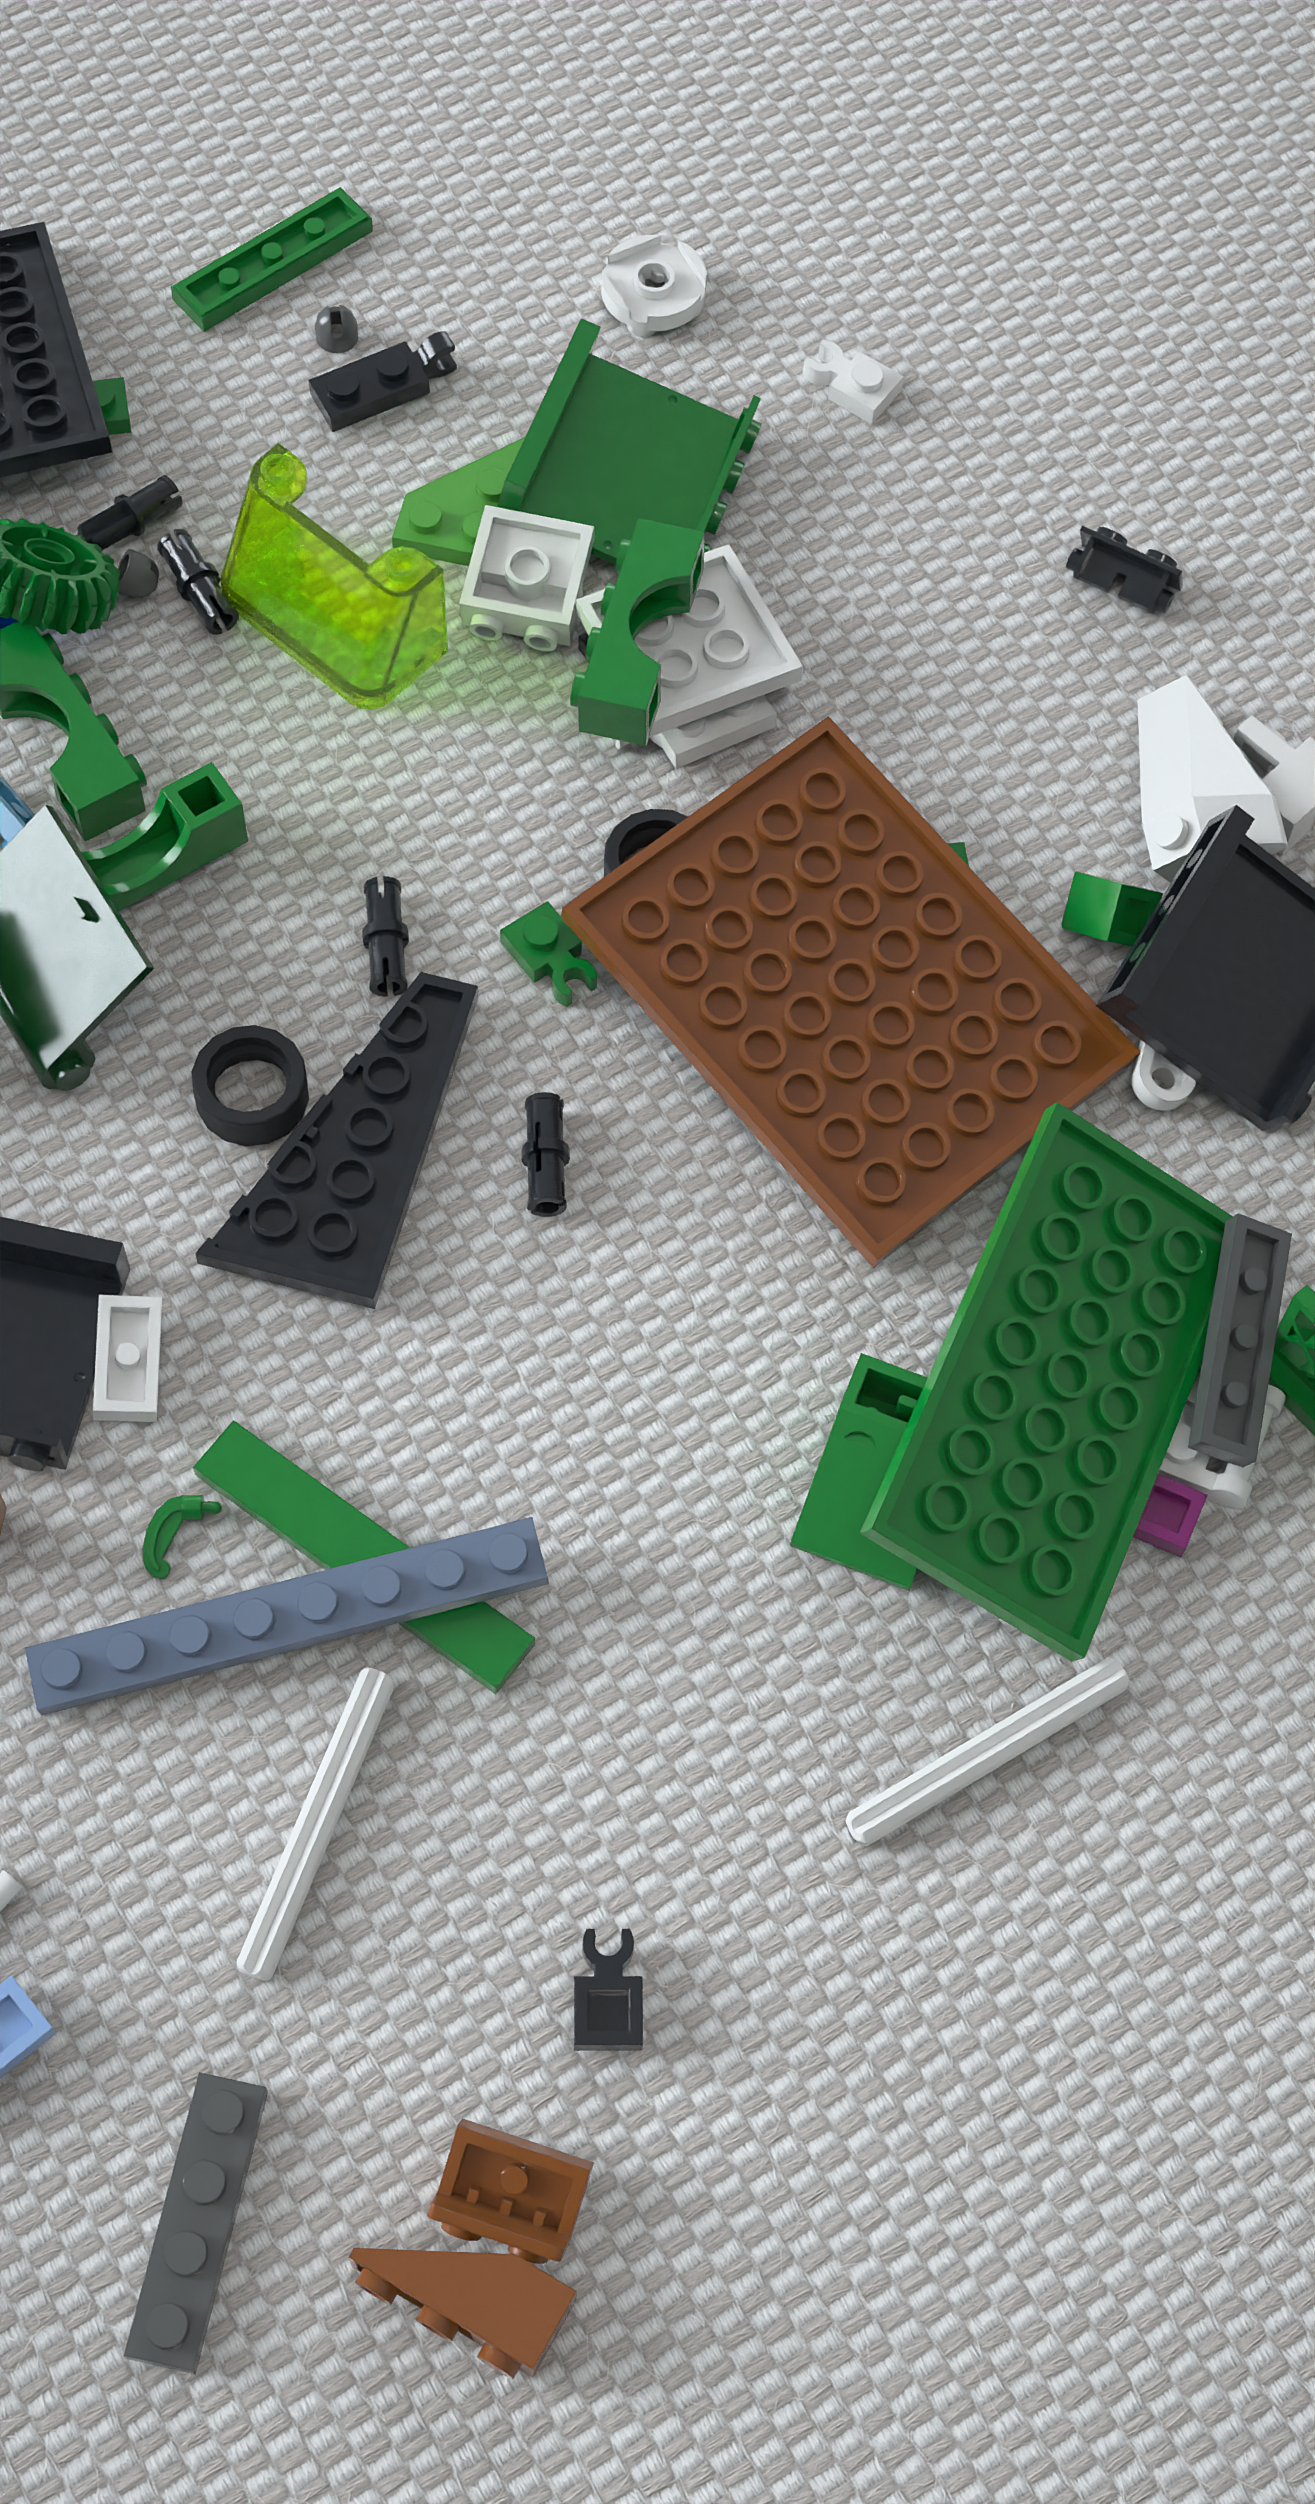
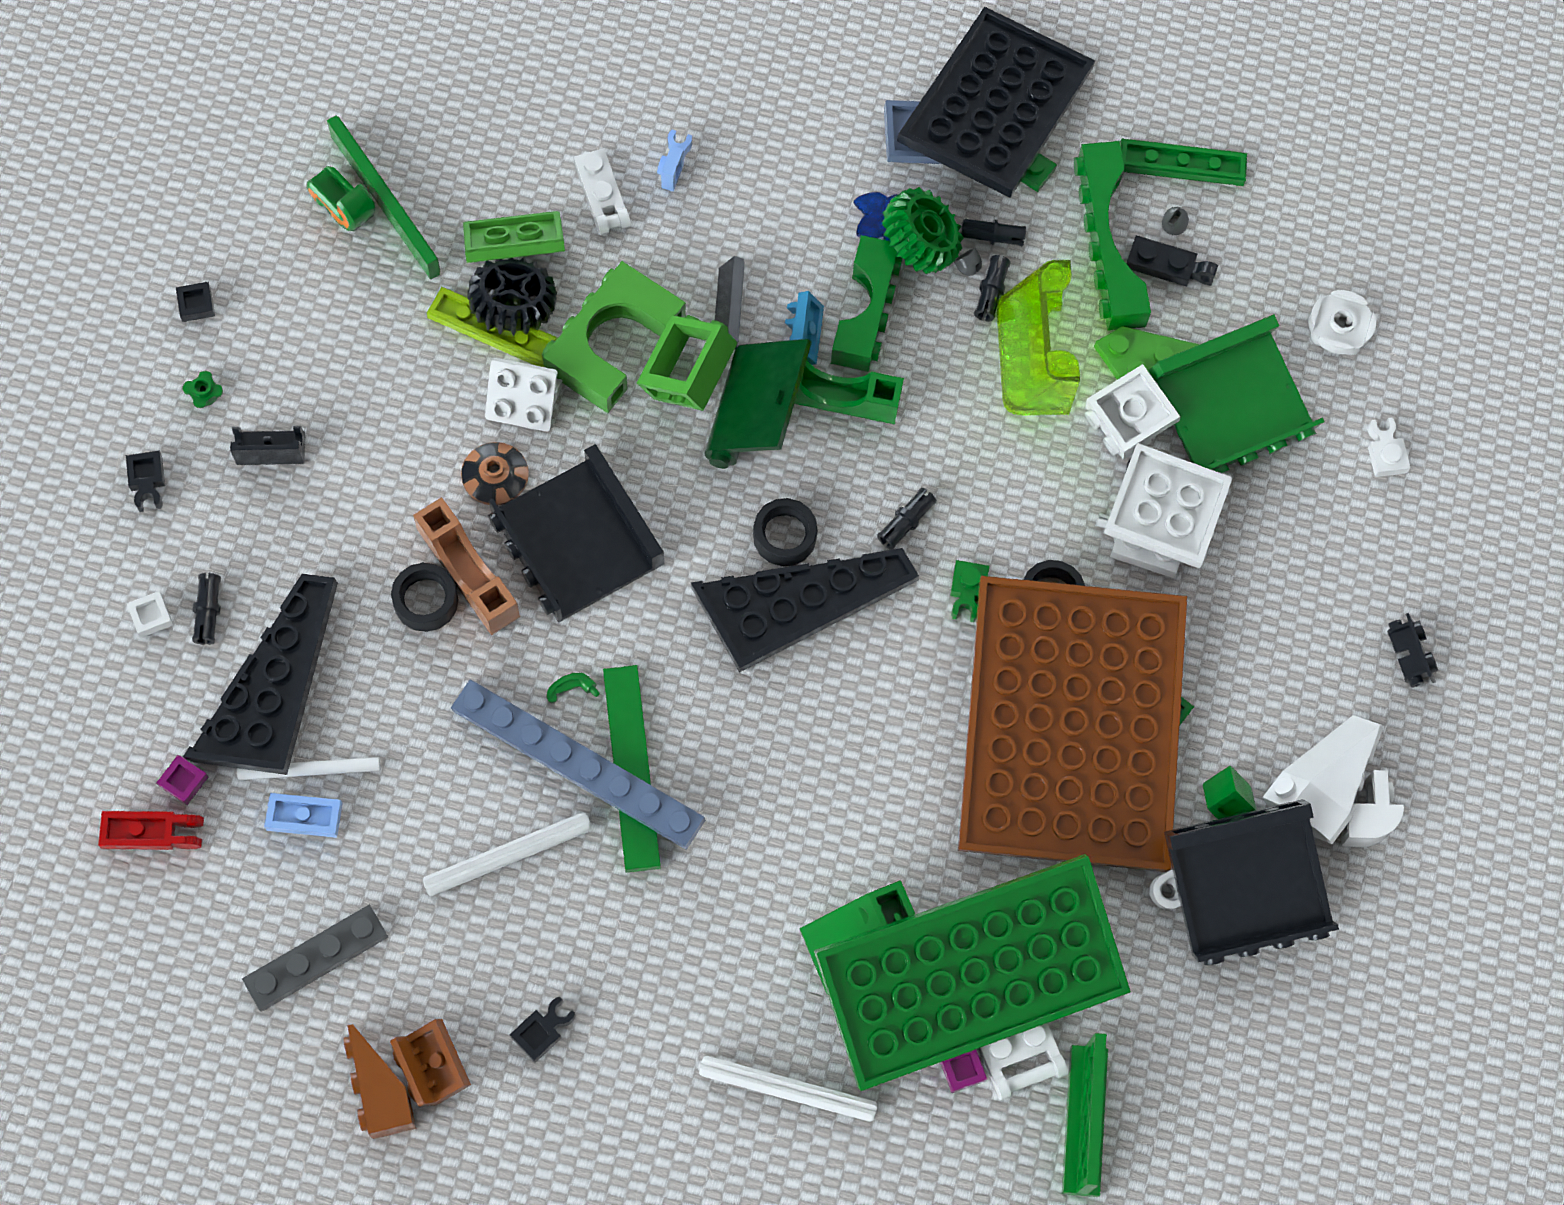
camera: 45 degrees right, 5 degrees up
(127, 1358) = (622, 600): white plate -> none
(360, 454) = (1122, 291): none -> green arch
(545, 1154) = (873, 673): black pin -> none
(655, 580) = (1177, 464): green arch -> none
(1240, 1341) = (1067, 1030): dark grey plate -> none

